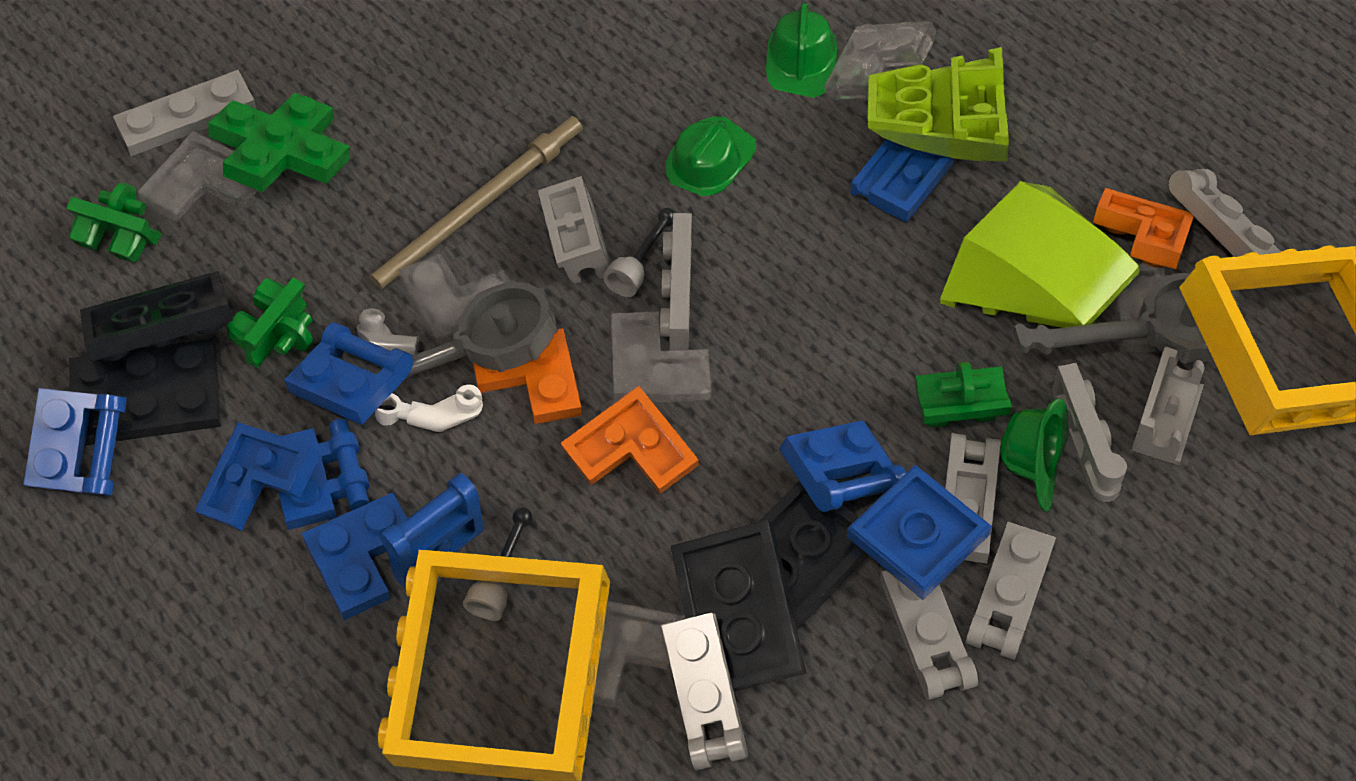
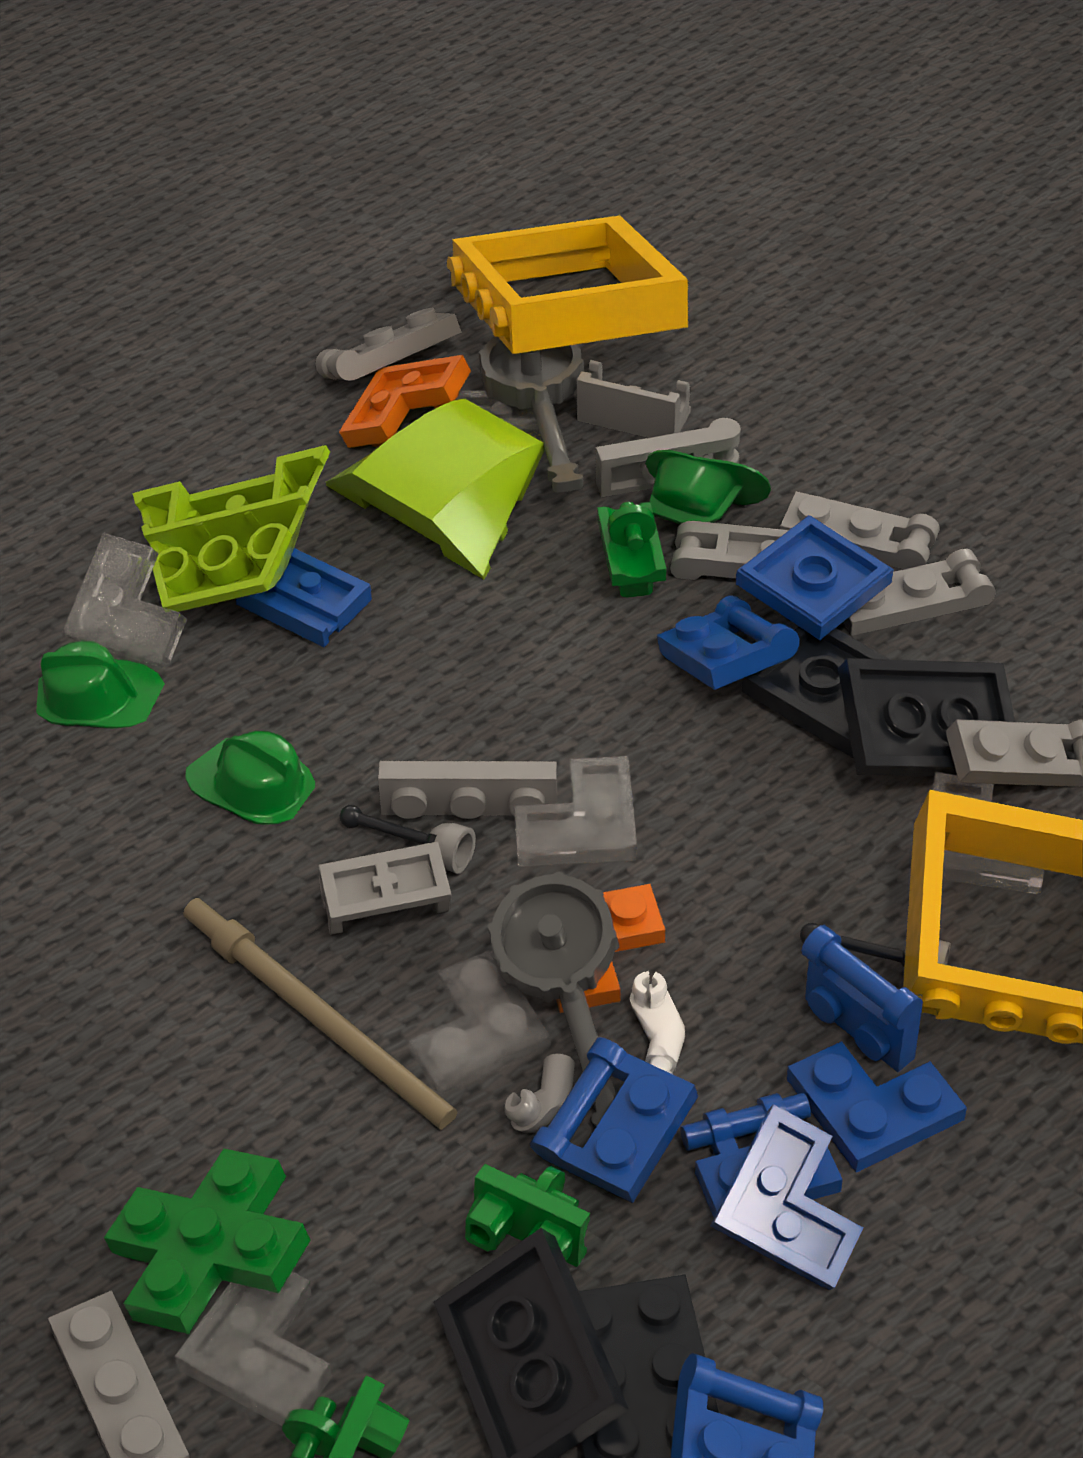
camera: 90 degrees left, 10 degrees down
(633, 430) = (694, 831): orange plate -> none

